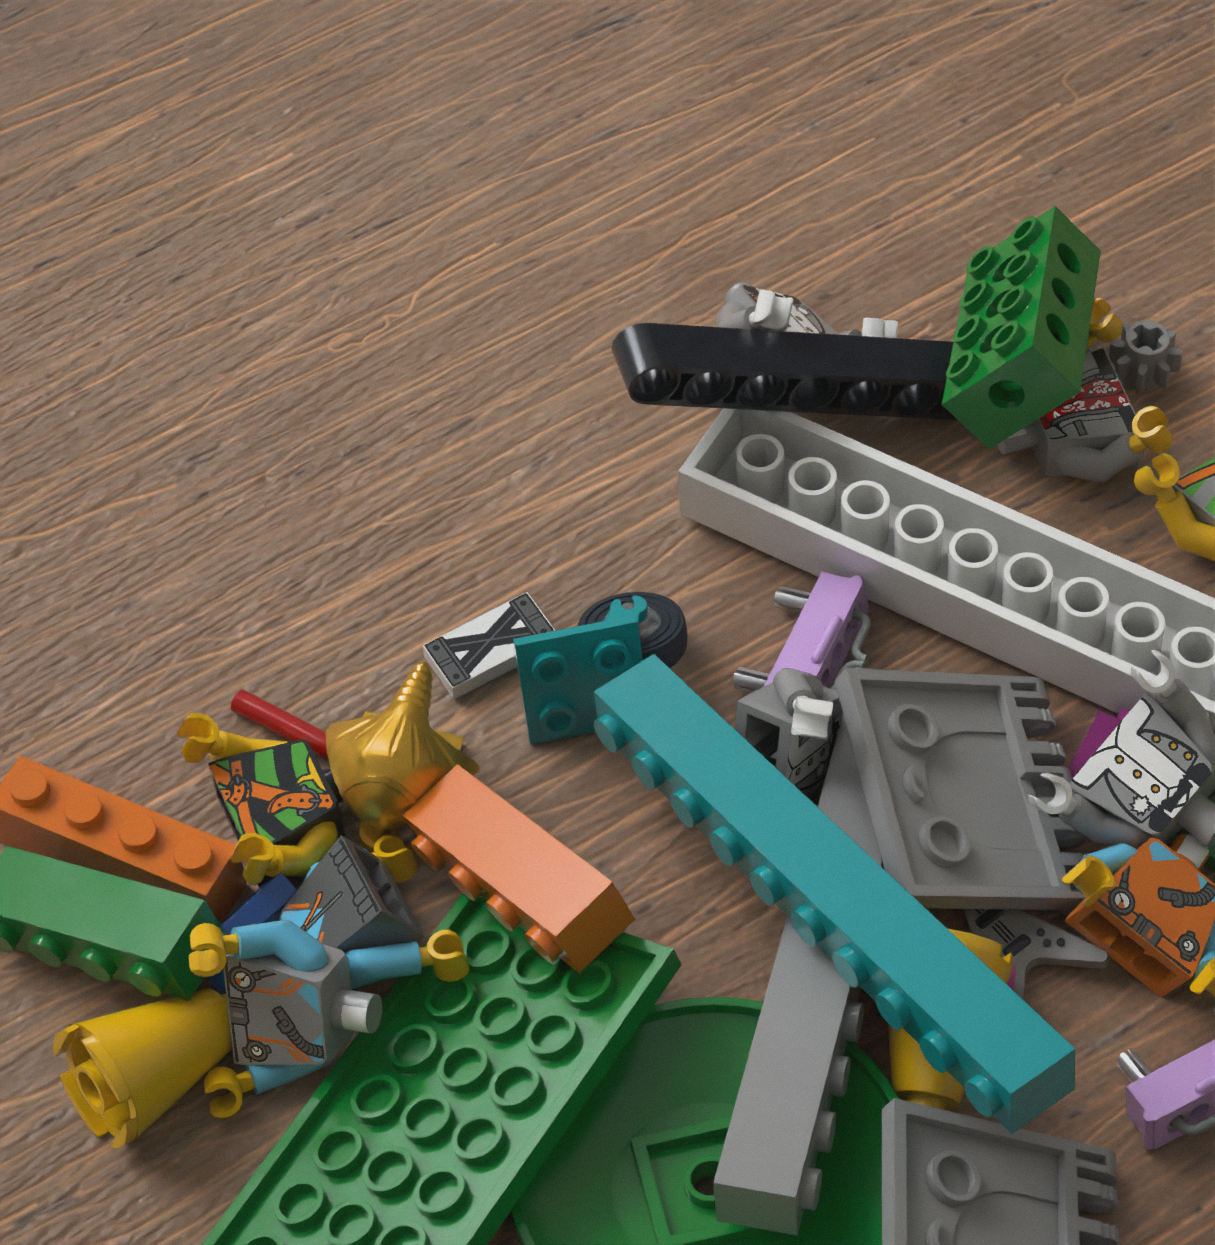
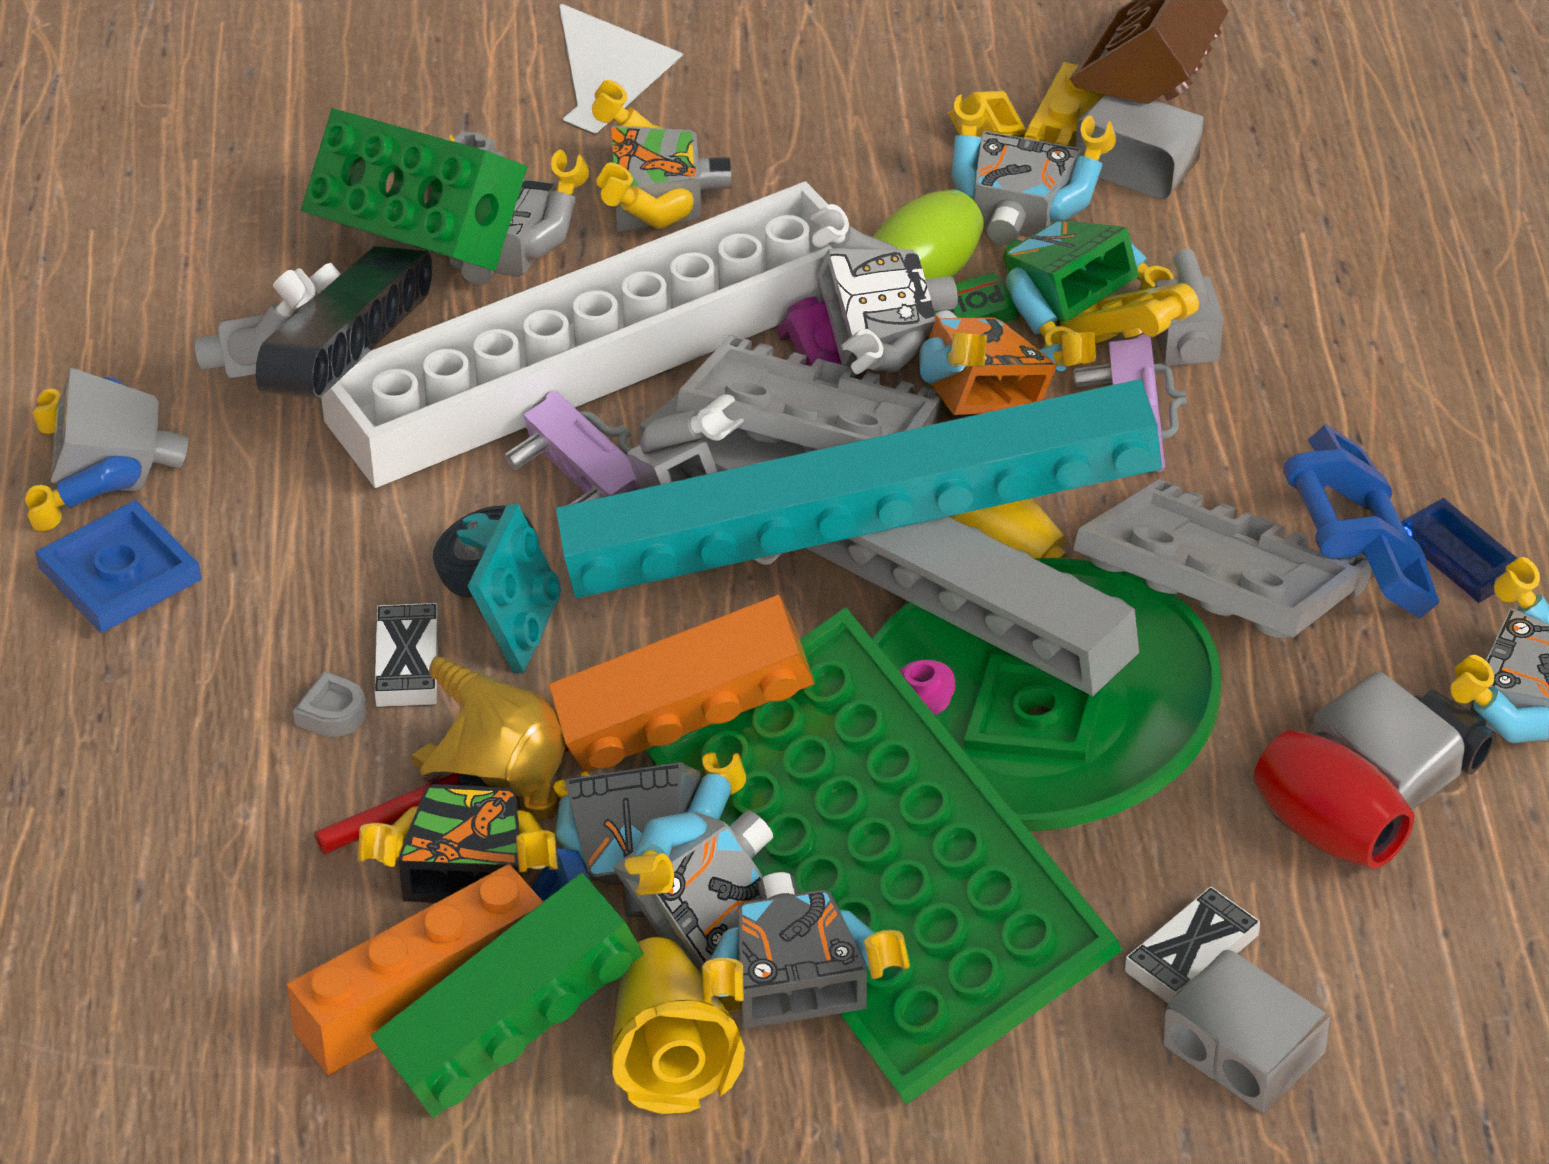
camera: 65 degrees left, 10 degrees down
(240, 1114) = (797, 956): none -> torso
(399, 625) = (331, 707): none -> light grey tile
(459, 386) = (118, 565): none -> blue plate
(580, 288) = (100, 444): none -> light grey torso
(647, 1082) = (932, 682): none -> dark pink plate

